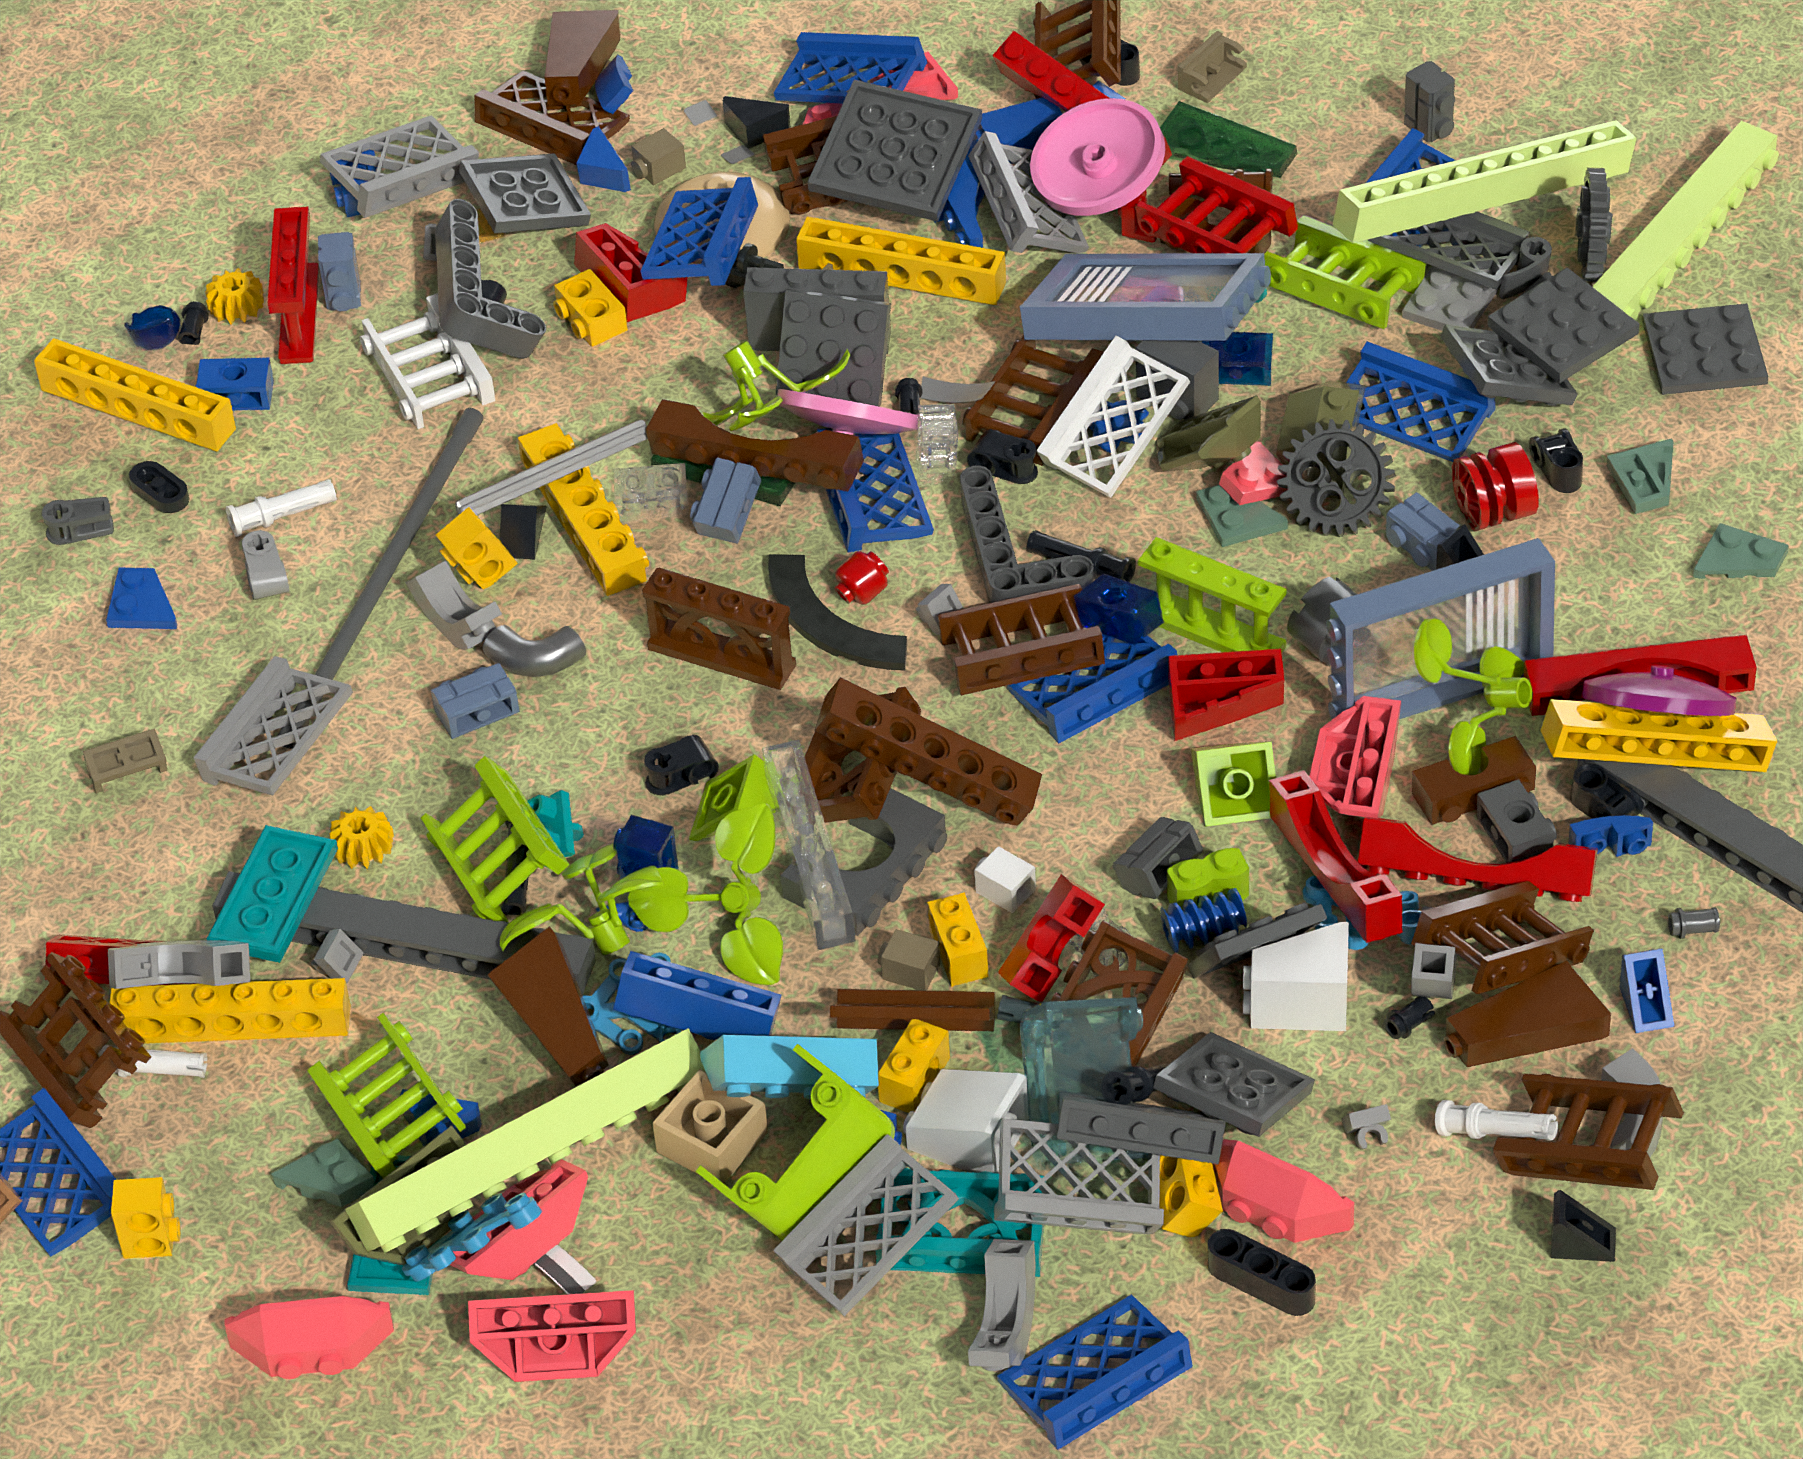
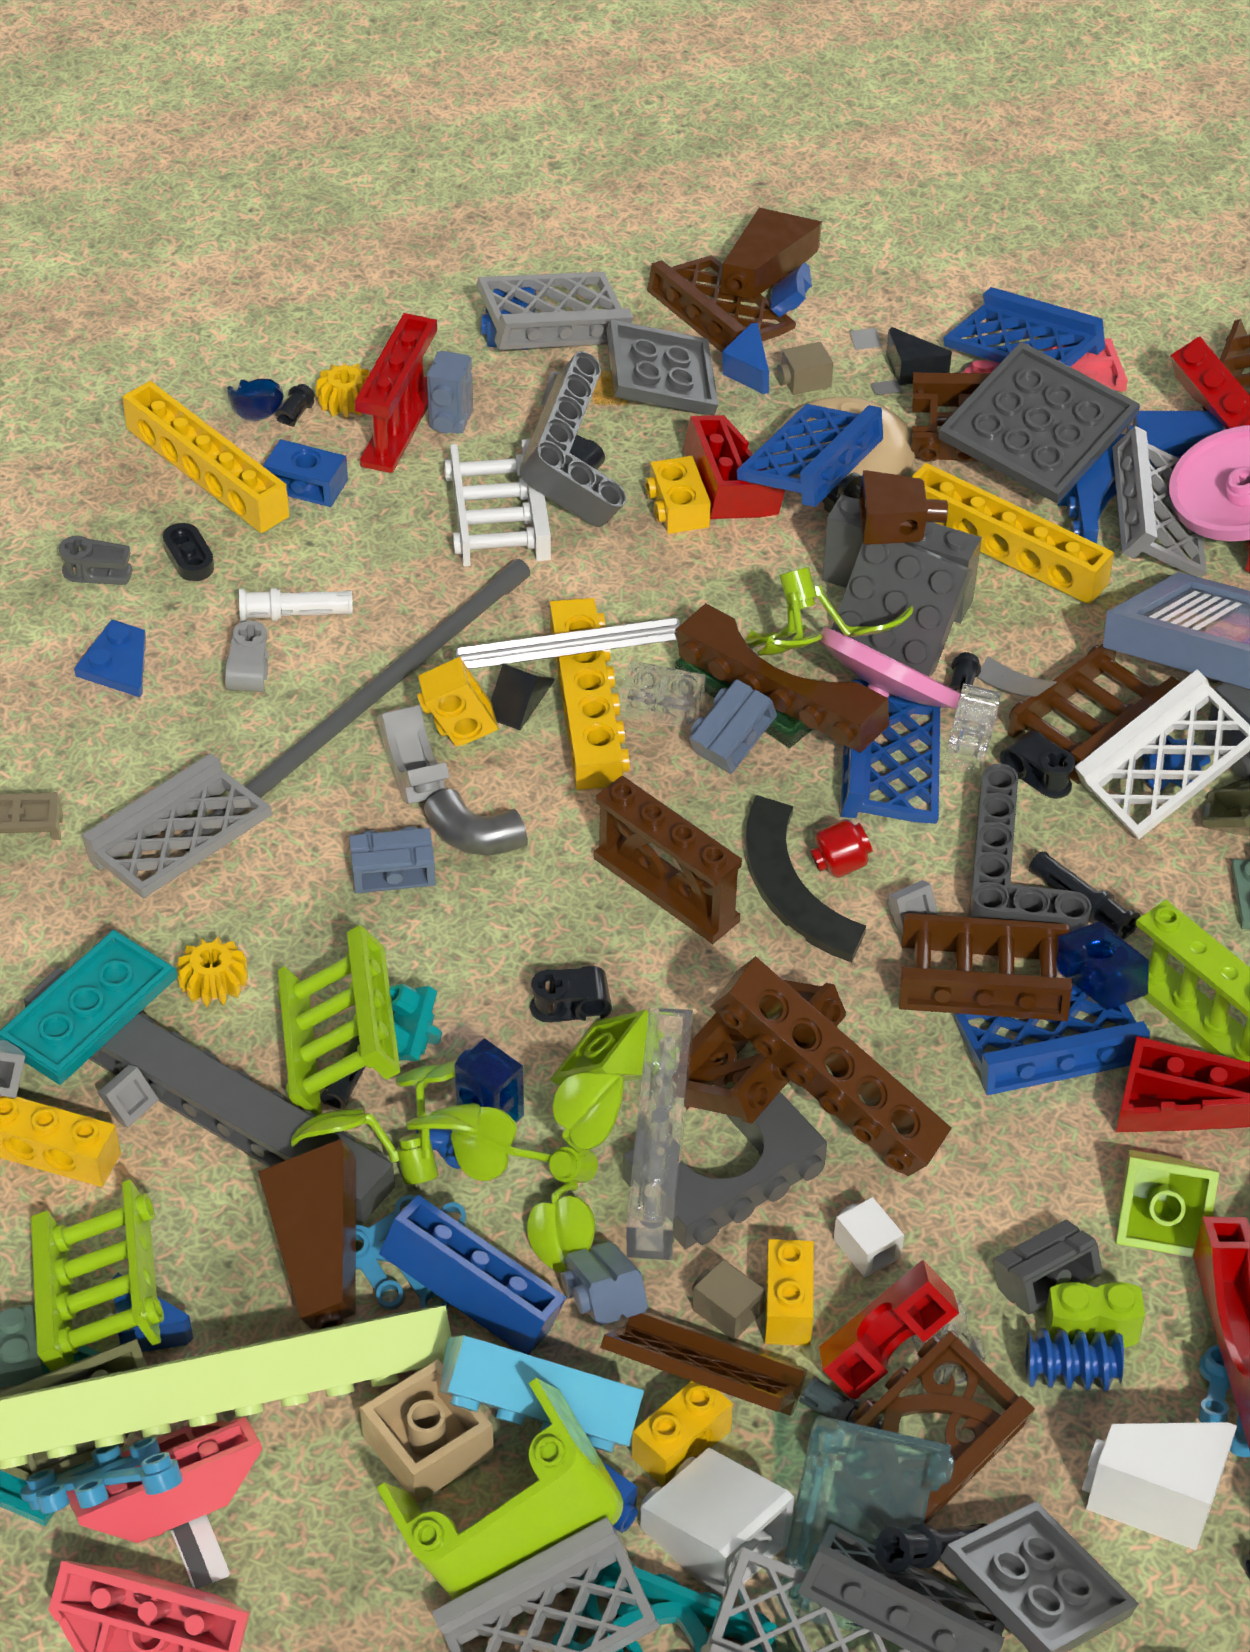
camera: 15 degrees right, 0 degrees up
(805, 266) = (896, 508): none -> reddish brown torso
(807, 975) = (604, 1283): none -> sand blue brick
(1236, 947) = (1124, 1407): dark grey plate -> none

